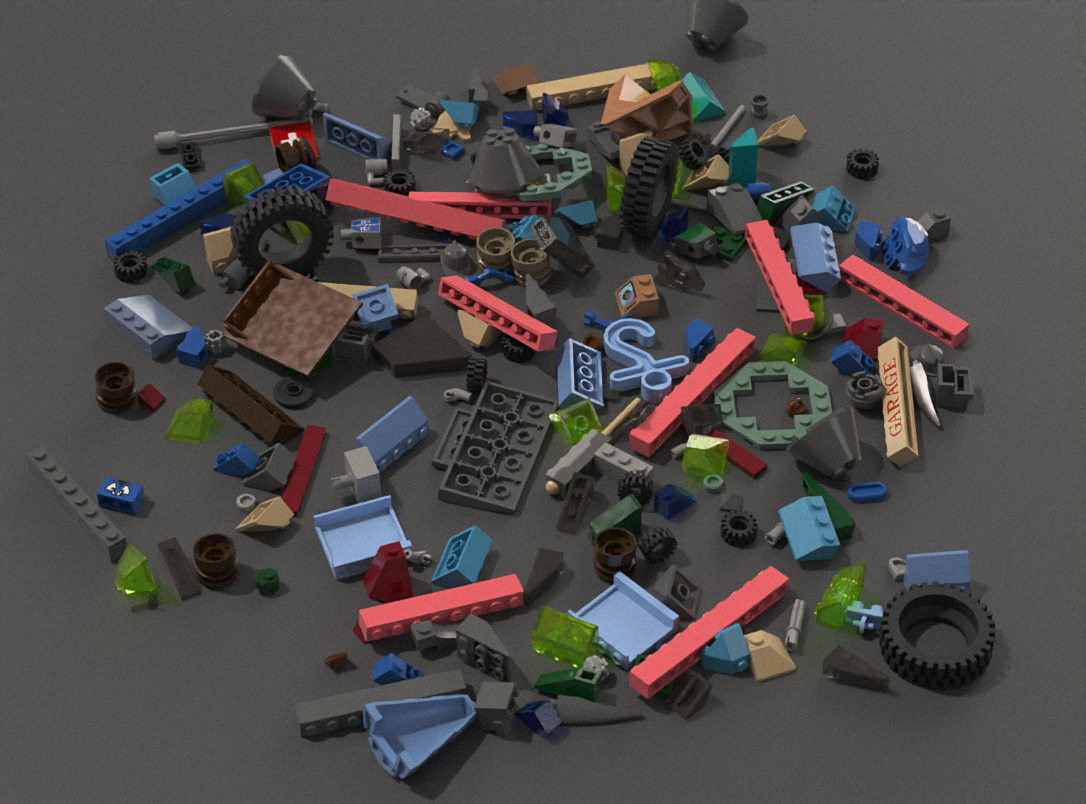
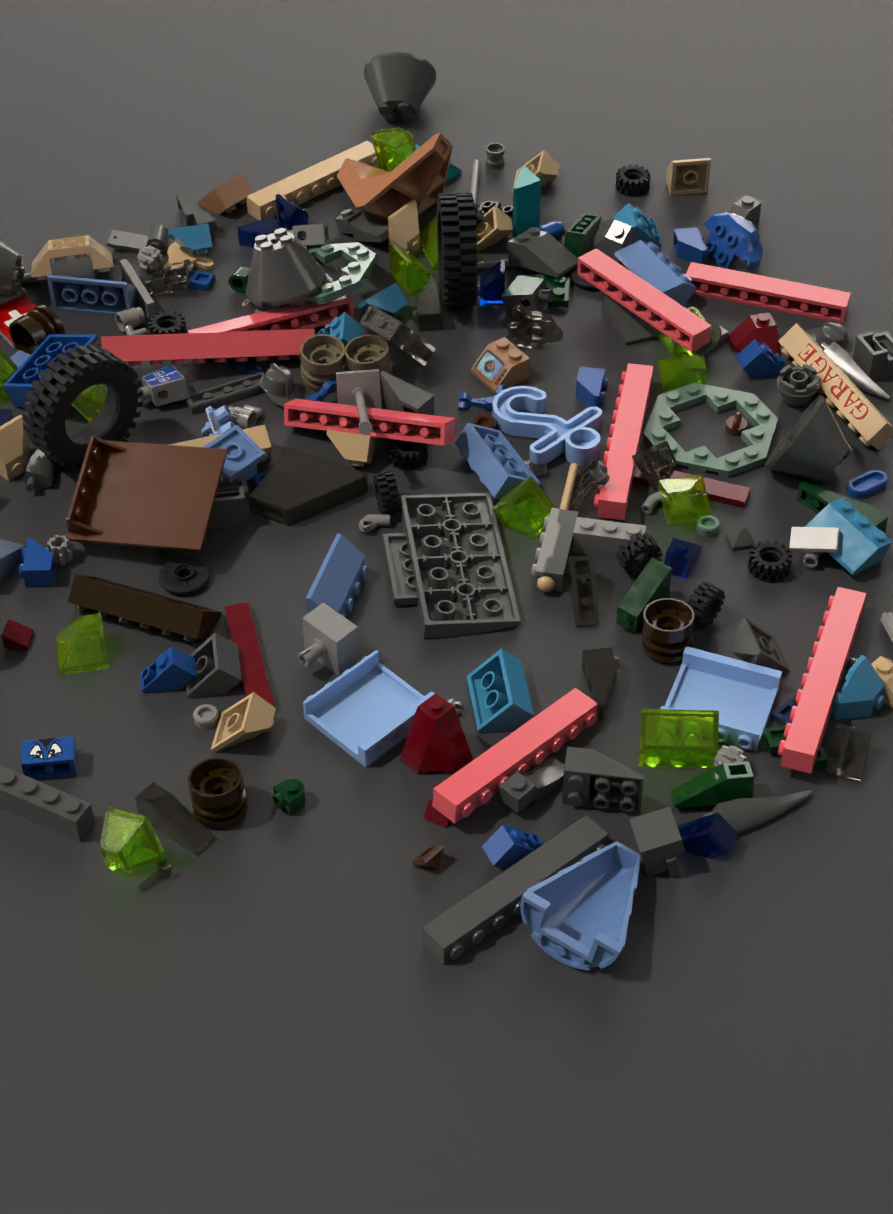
camera: 25 degrees left, 0 degrees up
(374, 98) = (64, 247): none -> tan slope
(387, 276) = (217, 421): none -> light blue hips
(504, 284) = (361, 390): none -> light grey tile
(778, 522) = (814, 539): none -> white tile
(908, 175) = (688, 176): none -> tan slope

